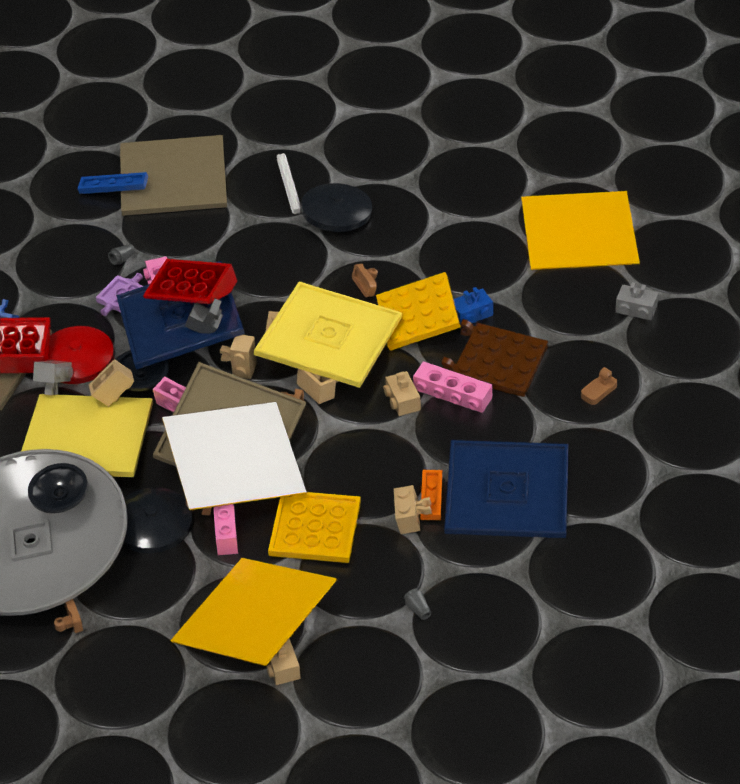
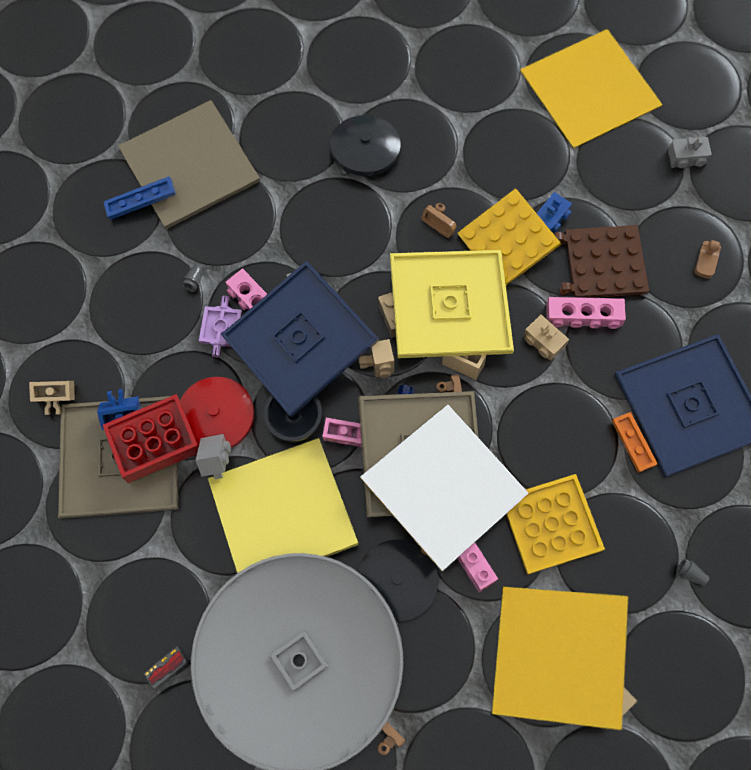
camera: 25 degrees left, 25 degrees up
(57, 488) = (292, 607): black dish -> none
(111, 383) = (279, 446): tan brick -> none
(191, 281) = (301, 307): red slope -> none
(205, 319) = (335, 341): dark grey brick -> none
(289, 183) = (304, 133): white axle -> none
(408, 509) = (627, 471): tan brick -> none

